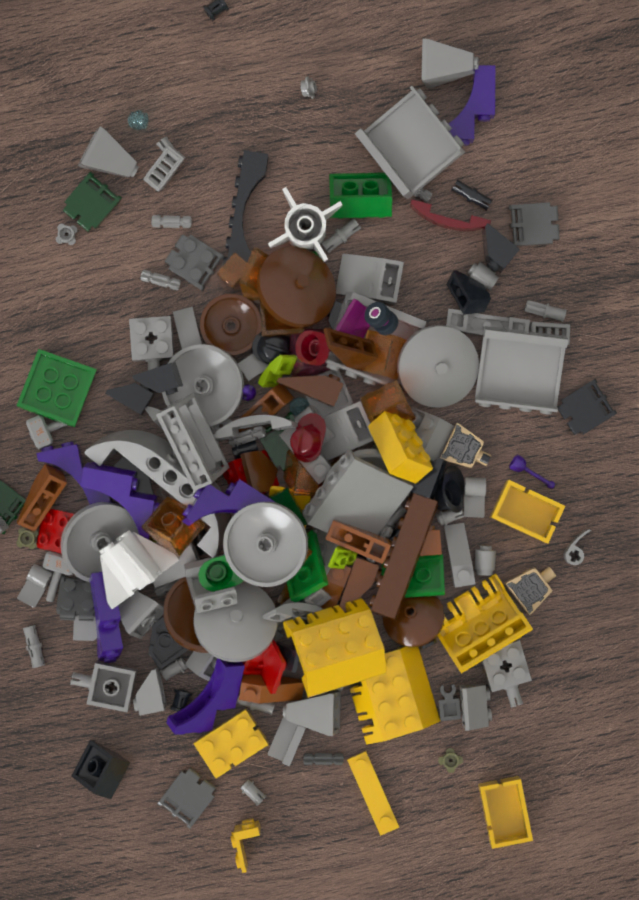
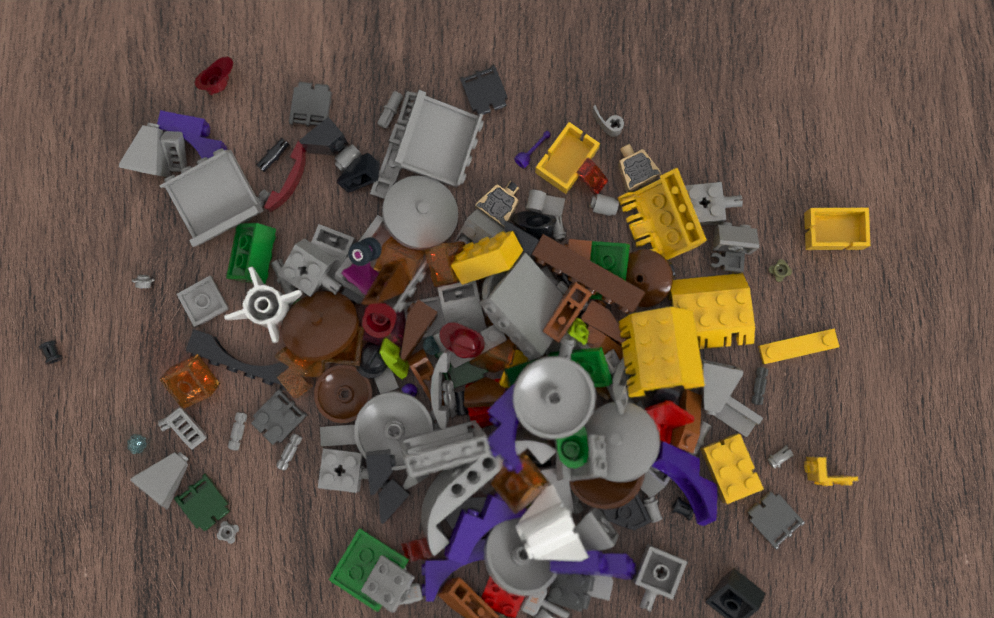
camera: 70 degrees left, 5 degrees down
(46, 411) = (388, 584): none -> light grey plate
(86, 433) = (416, 550): none -> clear red slope
(151, 694) = (674, 535): light grey slope -> none
(212, 162) = (189, 381): none -> clear orange slope
(299, 155) = (203, 301): none -> light grey plate
(324, 548) = (567, 345): none -> light grey pin
(354, 262) = (309, 268): none -> light grey brick
(459, 555) = (596, 226): light grey slope -> none
(463, 82) = (174, 139): none -> light grey slope
(512, 541) = (592, 176): none -> clear red slope
(545, 115) = (215, 77): none -> dark red piece

